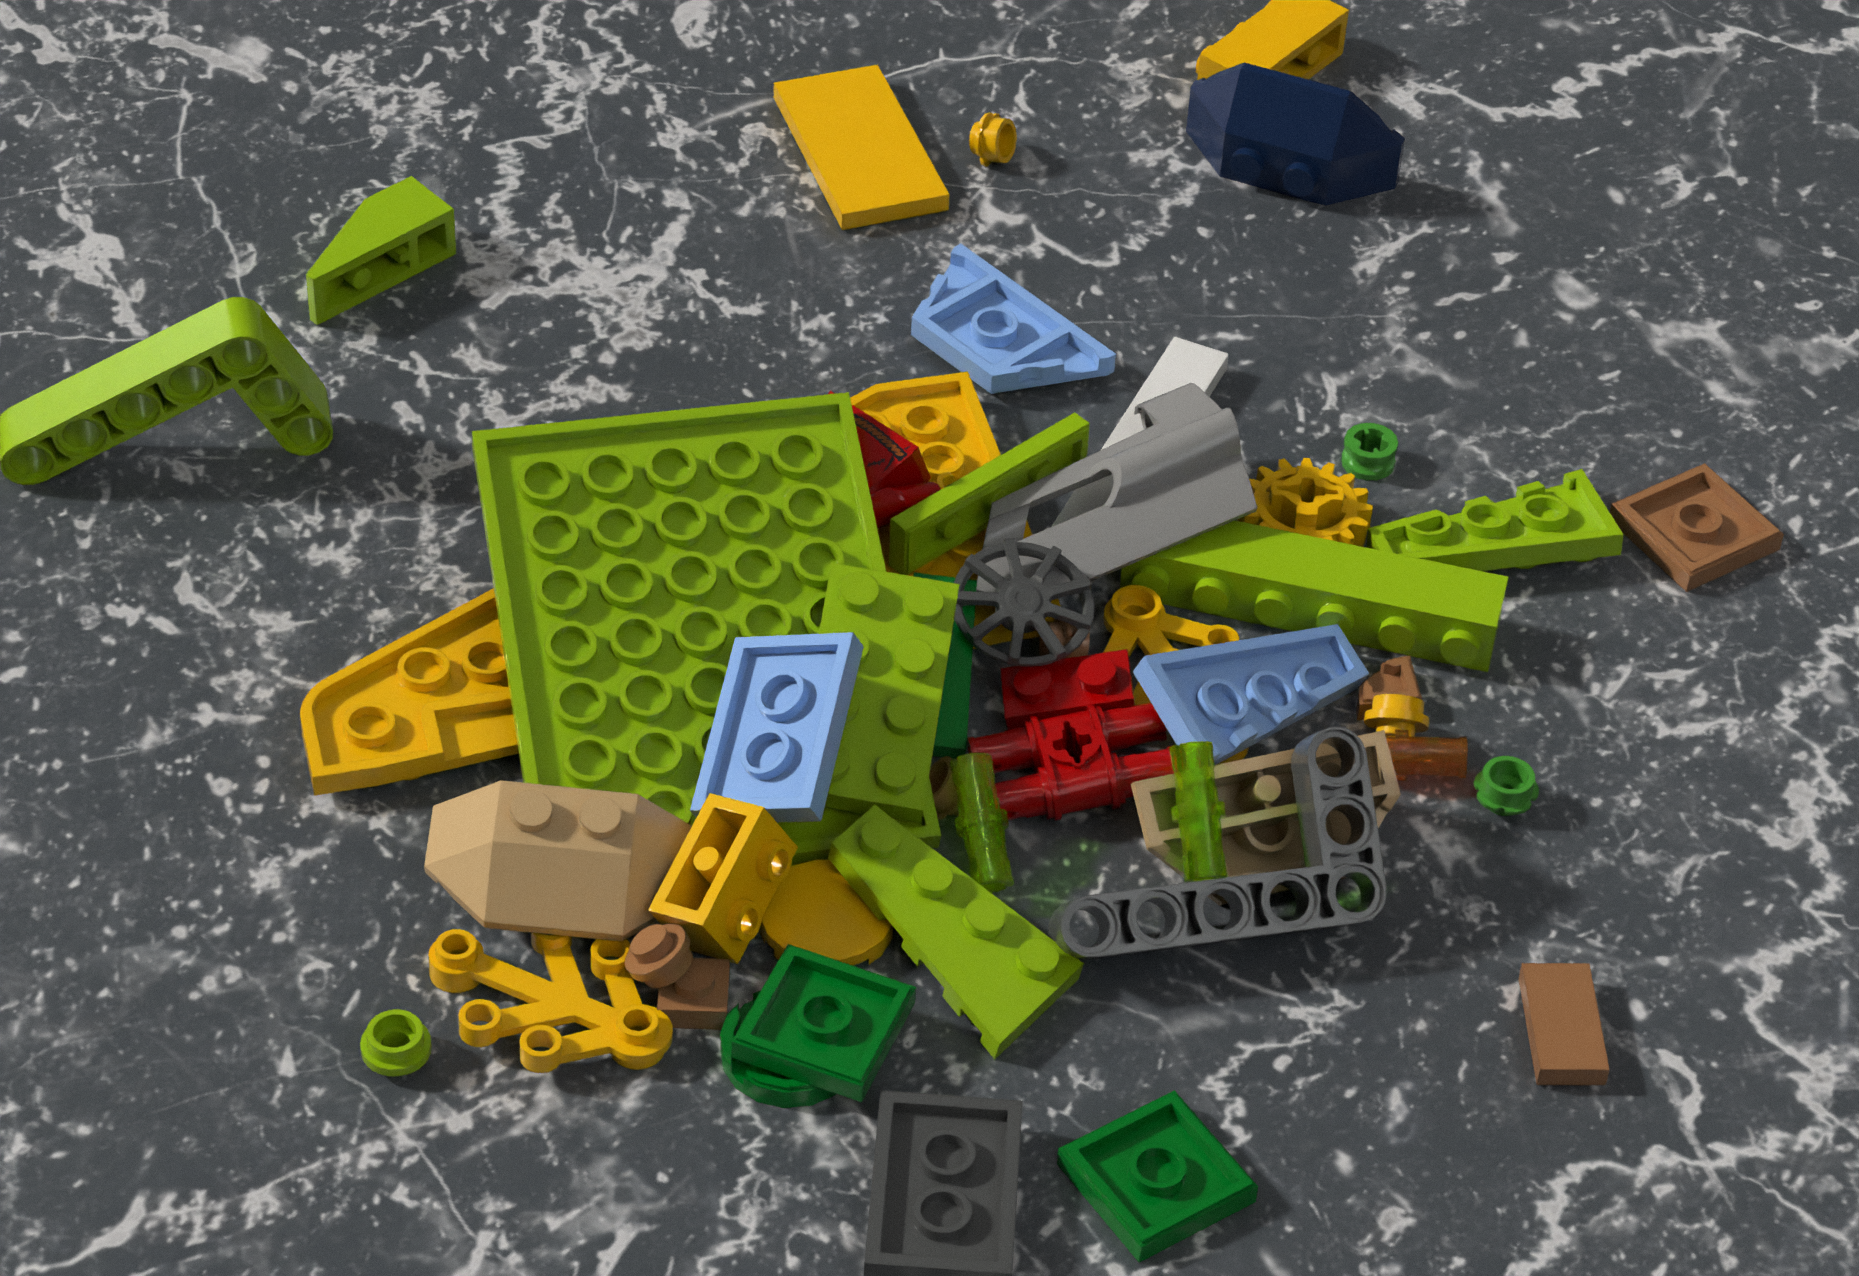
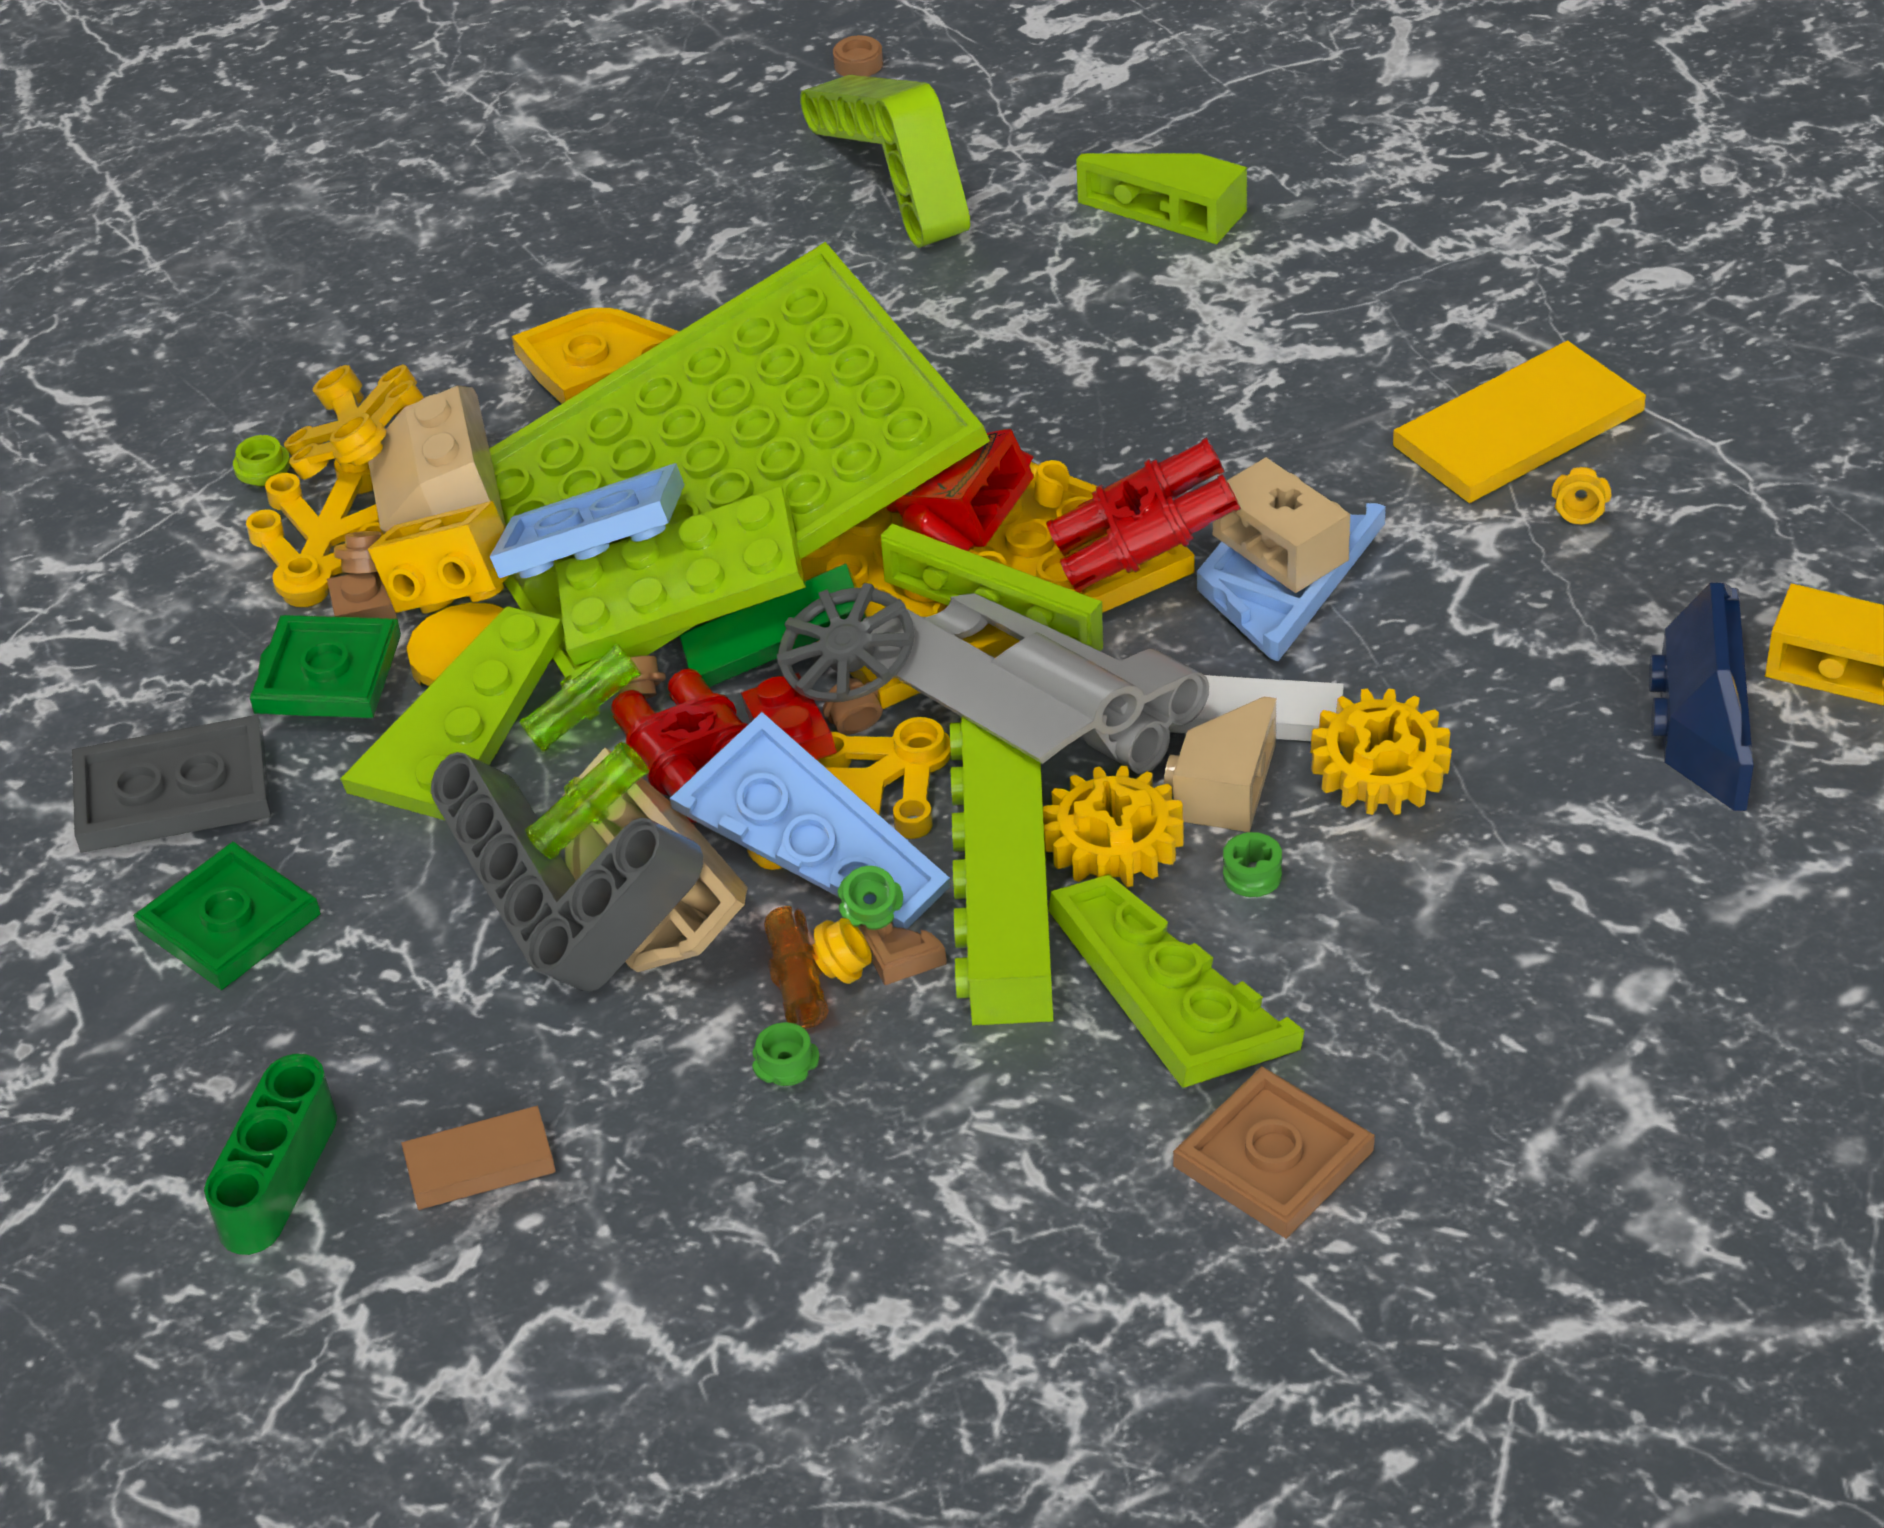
camera: 80 degrees right, 0 degrees up
(418, 928) = (359, 428): none -> yellow plant
(983, 369) = (1142, 515): none -> red pin
(987, 295) = (1284, 526): none -> tan brick
(1268, 419) = (1225, 766): none -> tan slope
(1283, 334) = (1380, 751): none -> yellow gear
(1358, 671) = (867, 881): none -> bright green plate
(1533, 1164) = (270, 1154): none -> green beam

